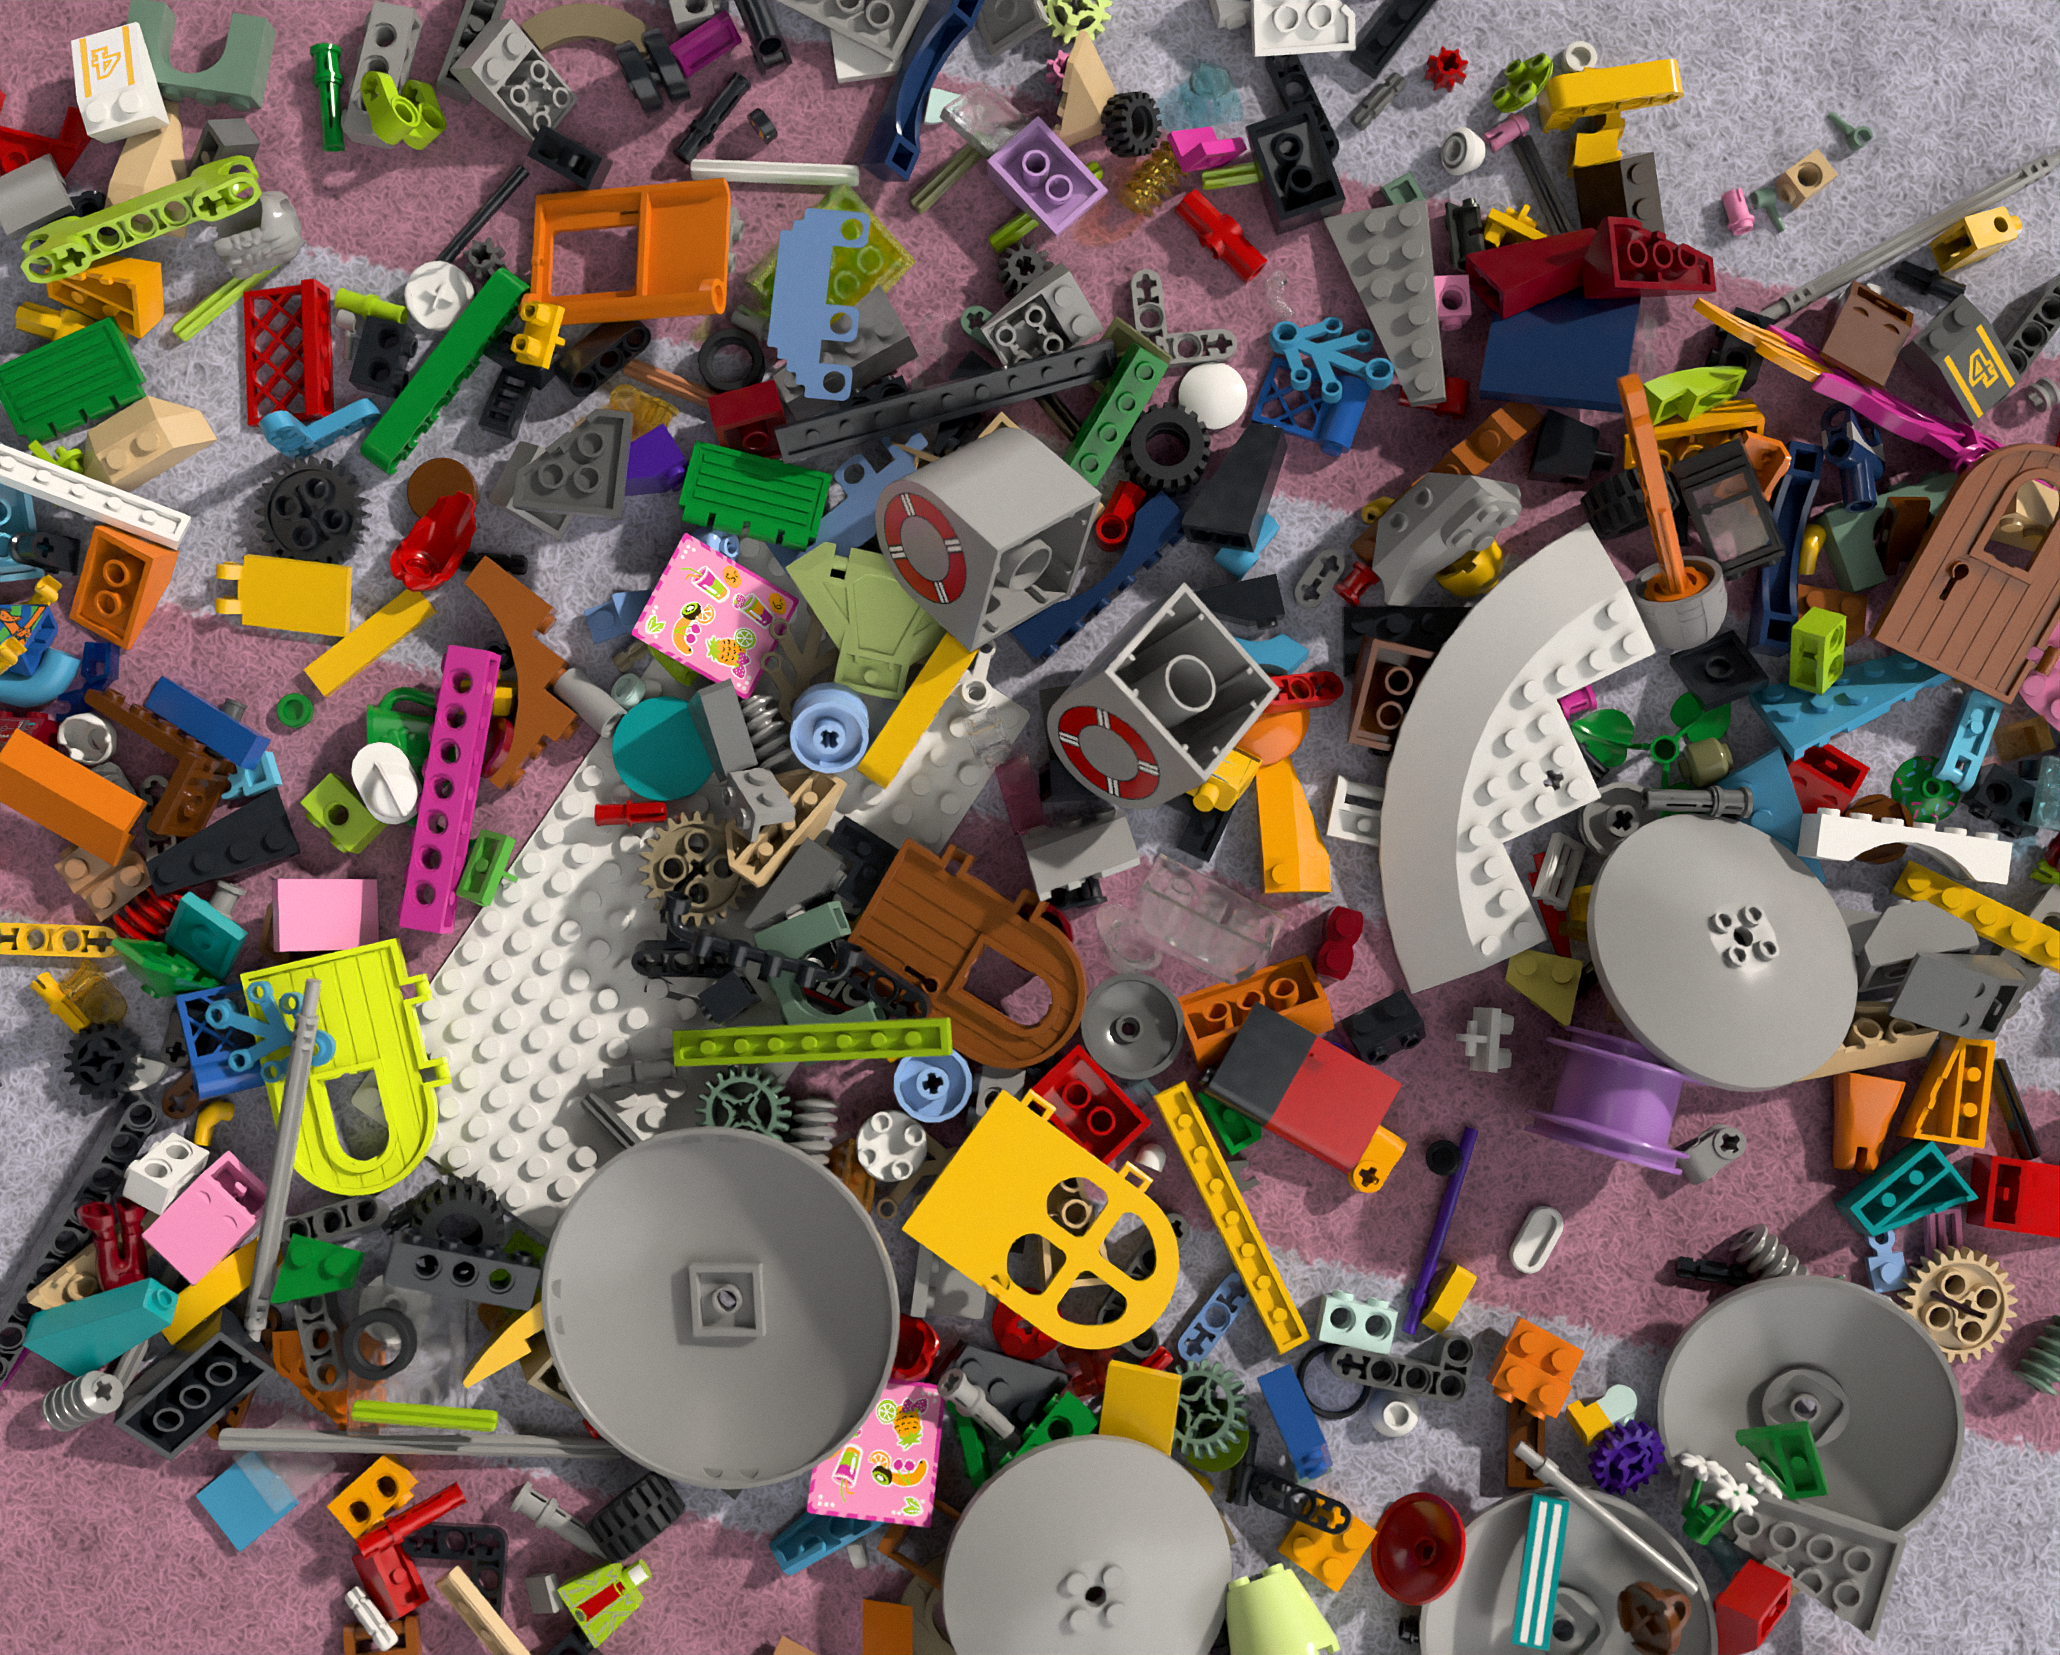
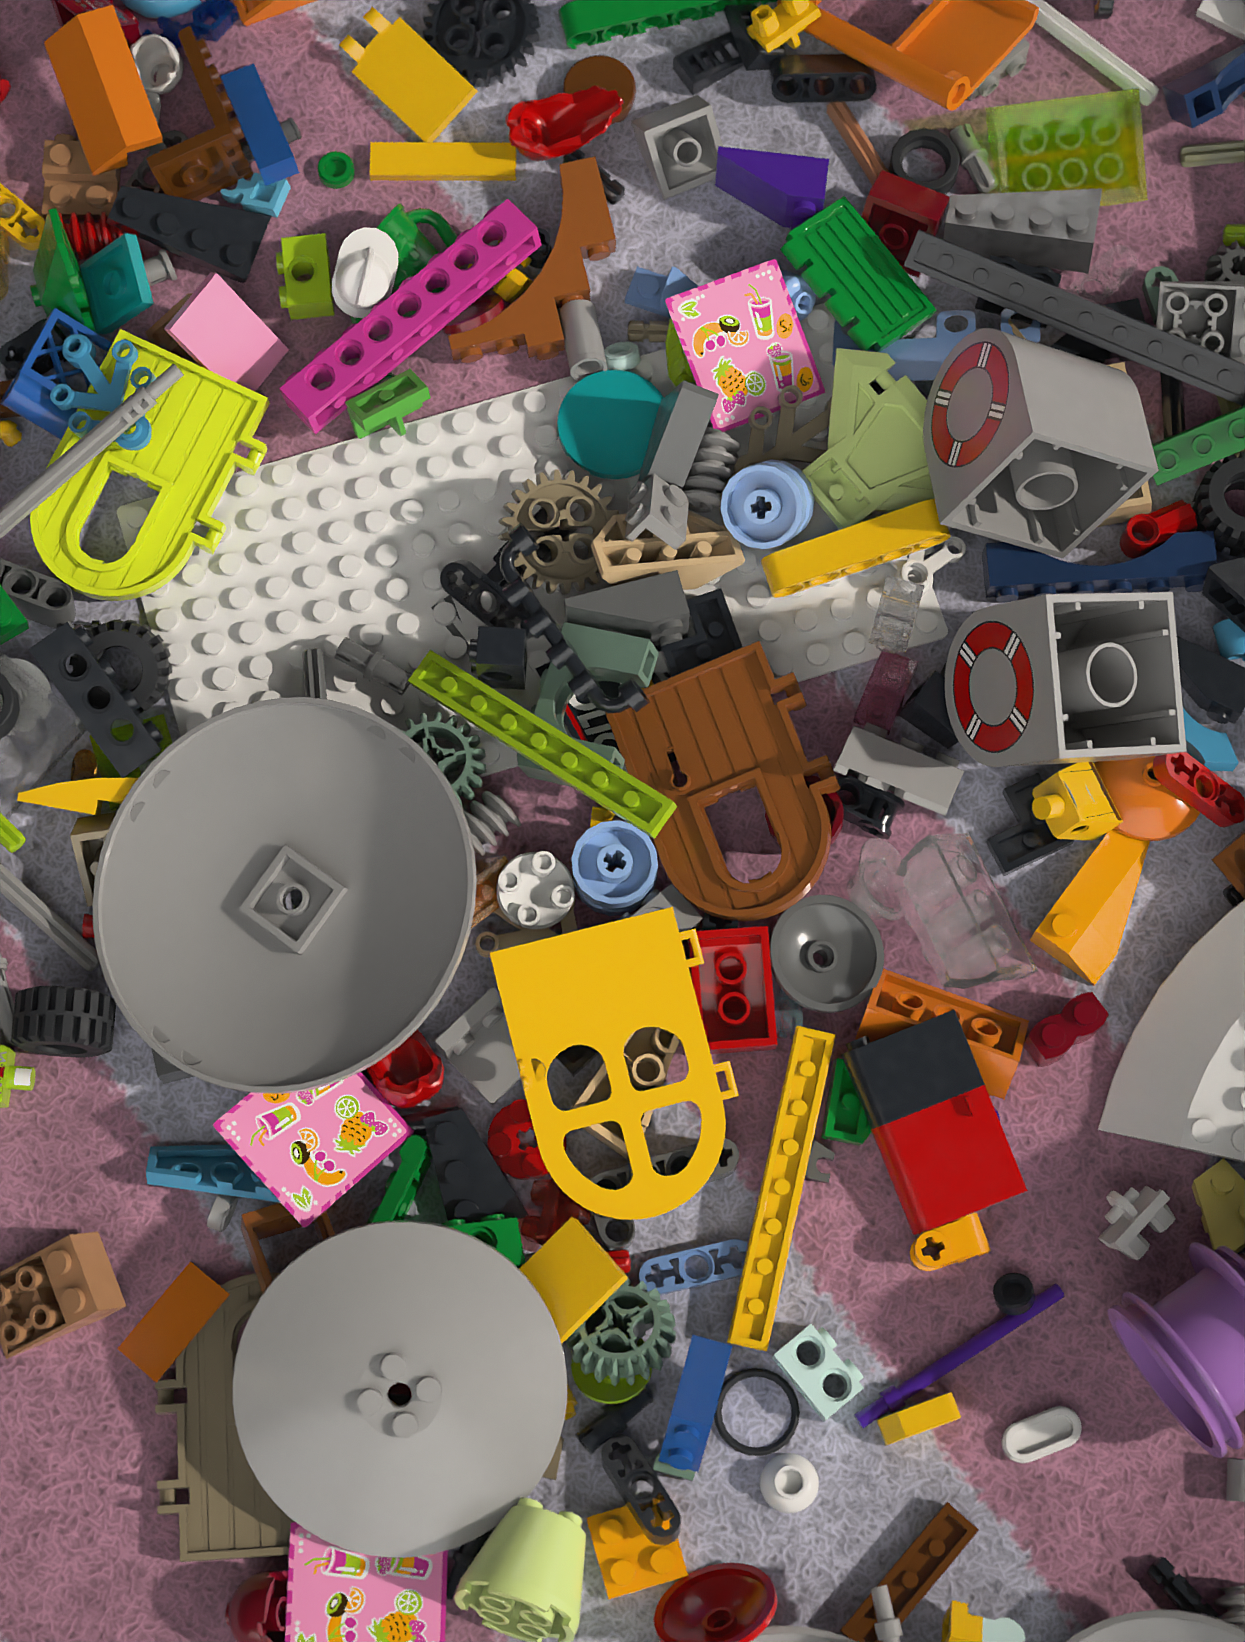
camera: 40 degrees right, 10 degrees down
(580, 470) = (730, 142): dark grey plate -> none
(630, 813) = (539, 450): red axle -> none
(648, 410) = (822, 145): clear yellow piece -> none
(799, 304) = (1025, 146): medium blue piece -> none
(902, 1008) = (640, 722): black beam -> none
(971, 1402) = (426, 1157): light grey pin -> none
(1152, 1156) = (752, 1084): white hinge -> none
(1352, 821) = (1162, 938): white plate -> none
(1384, 1028) = (1050, 1139): black bracket -> none
(1397, 1366) = (825, 1438): dark grey beam -> none
(1534, 1368) = (949, 1540): orange plate -> none

